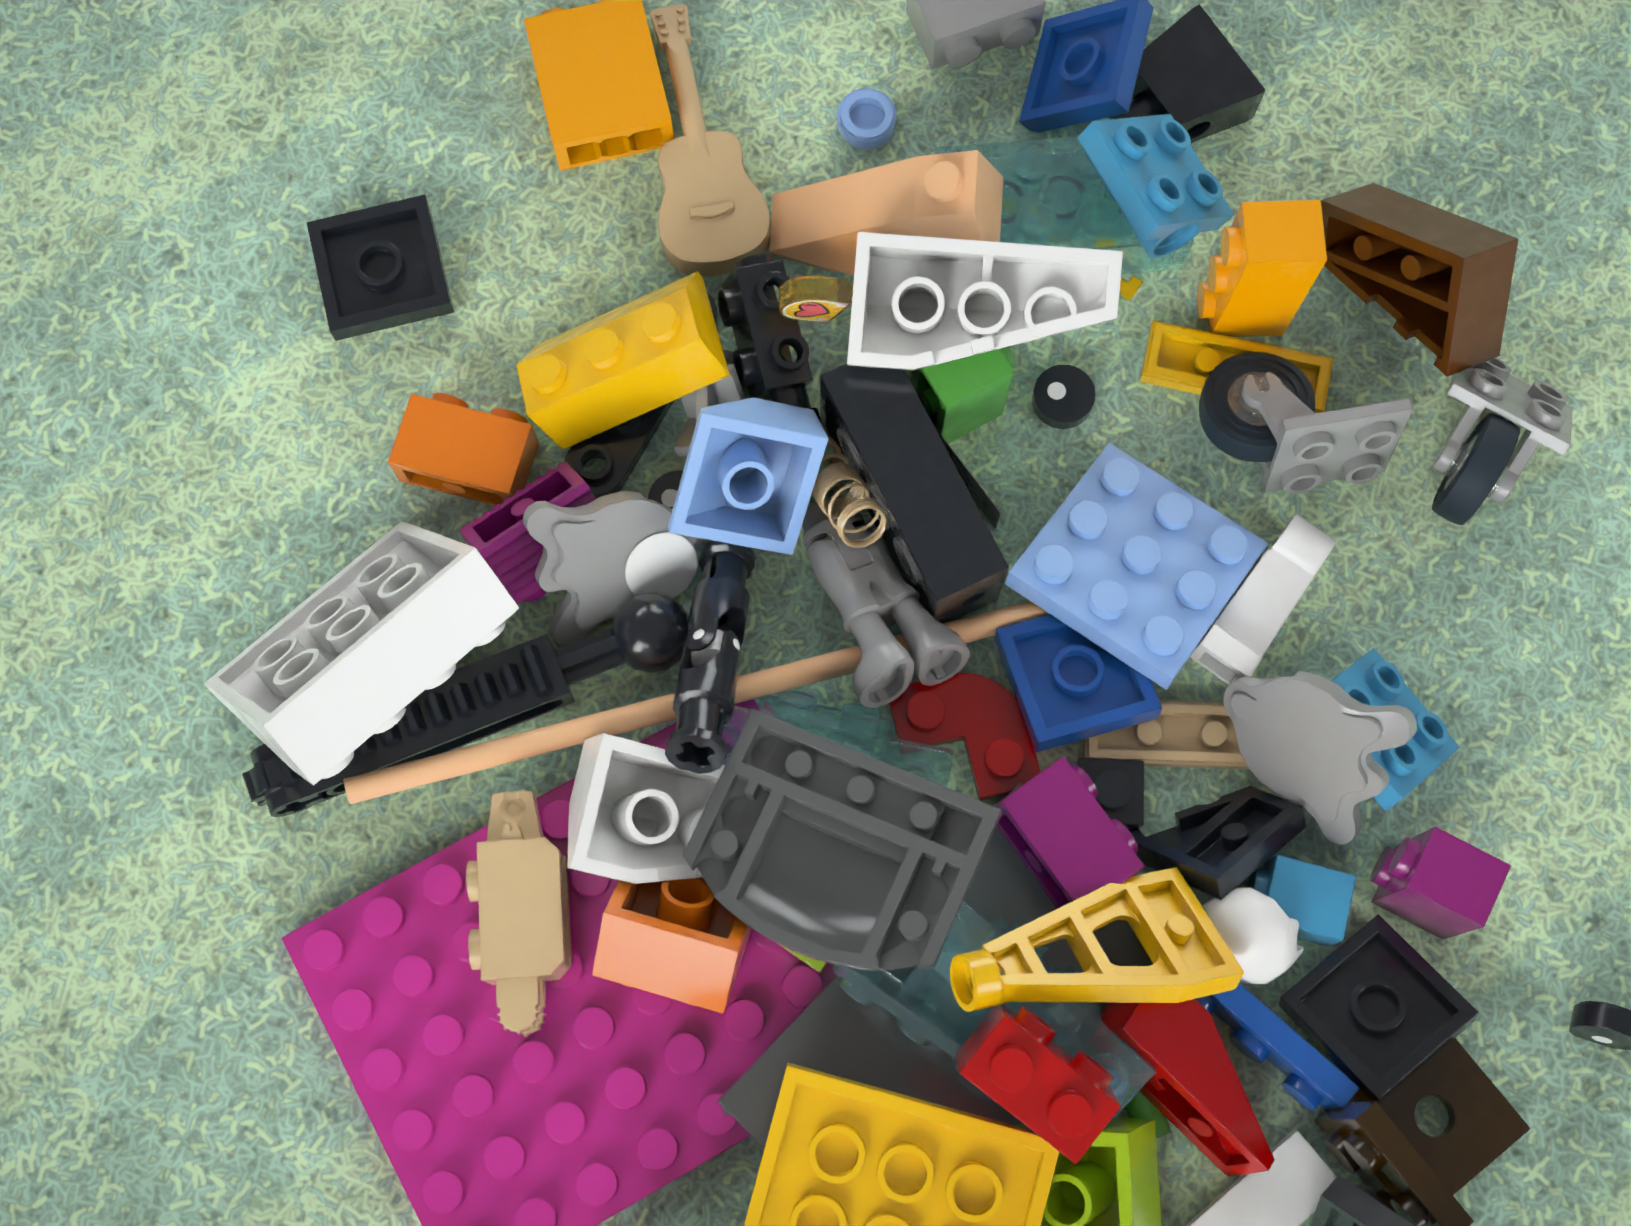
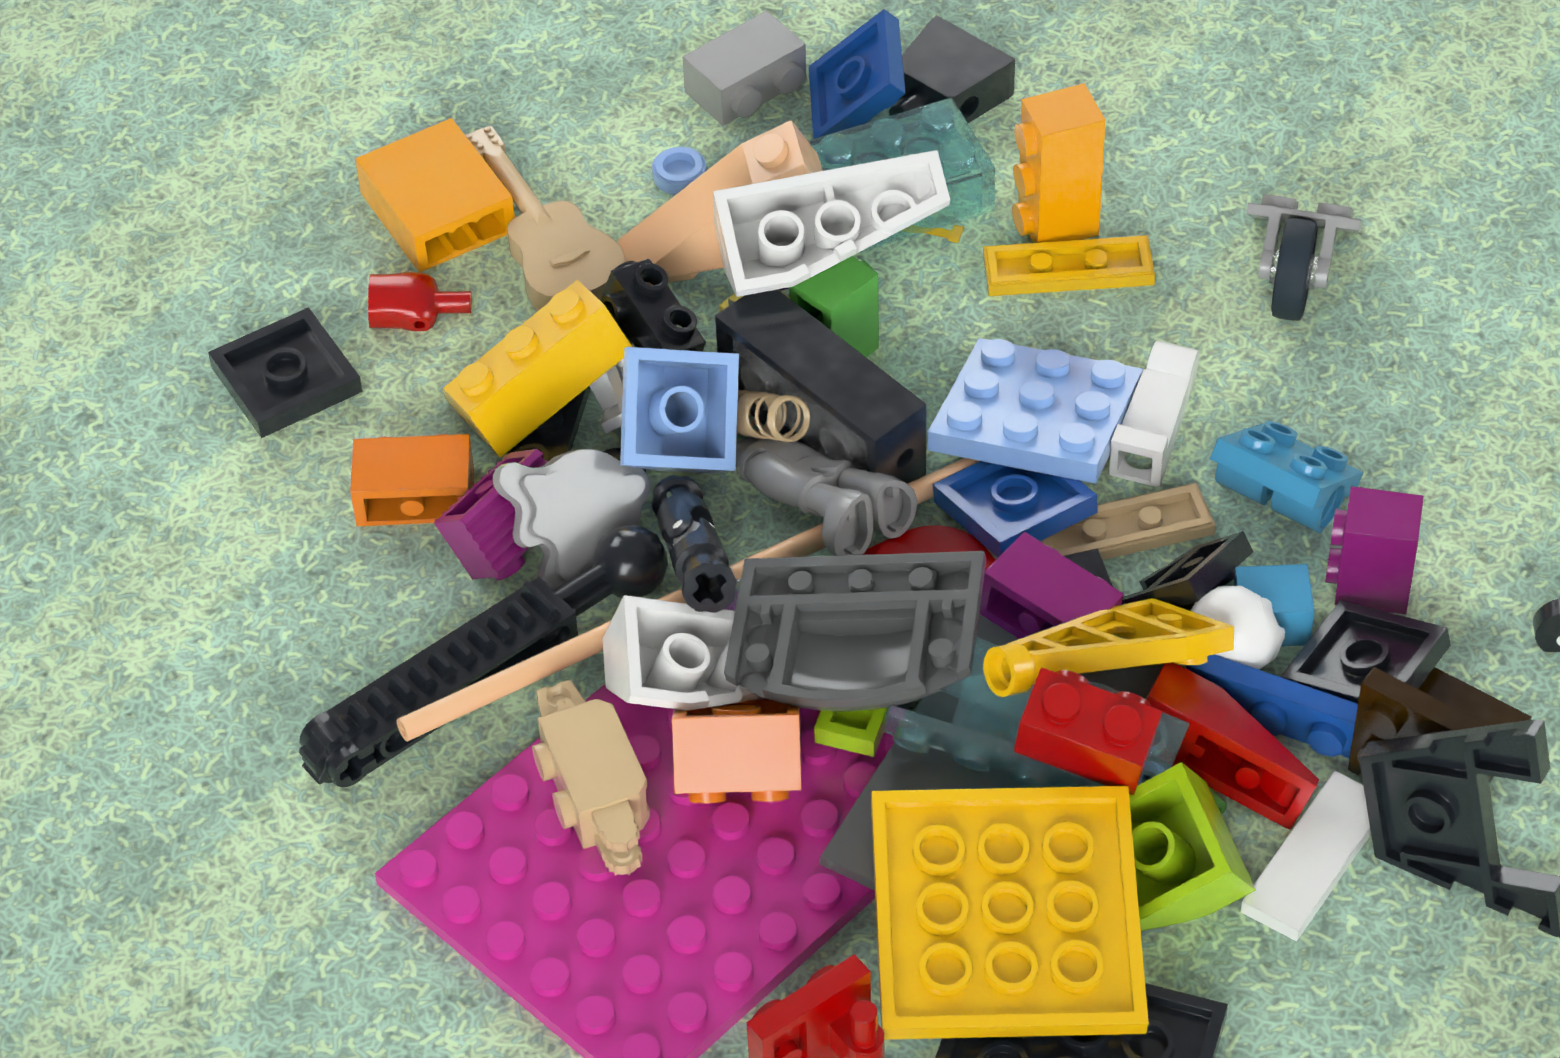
camera: 15 degrees left, 25 degrees down
(364, 648) = (385, 615): white slope -> none
(535, 210) = (411, 301): none -> red piece
(661, 565) = (620, 504): white sticker -> none
(814, 298) = (689, 269): clear yellow tile -> none
(1063, 396) = (927, 319): black tile -> none
(1155, 180) = (942, 119): dark azure plate -> none
(1266, 414) = (1143, 283): light grey plate -> none
(1316, 744) = (1231, 476): light grey tile -> none
(1426, 268) = (1197, 140): reddish brown wedge -> none

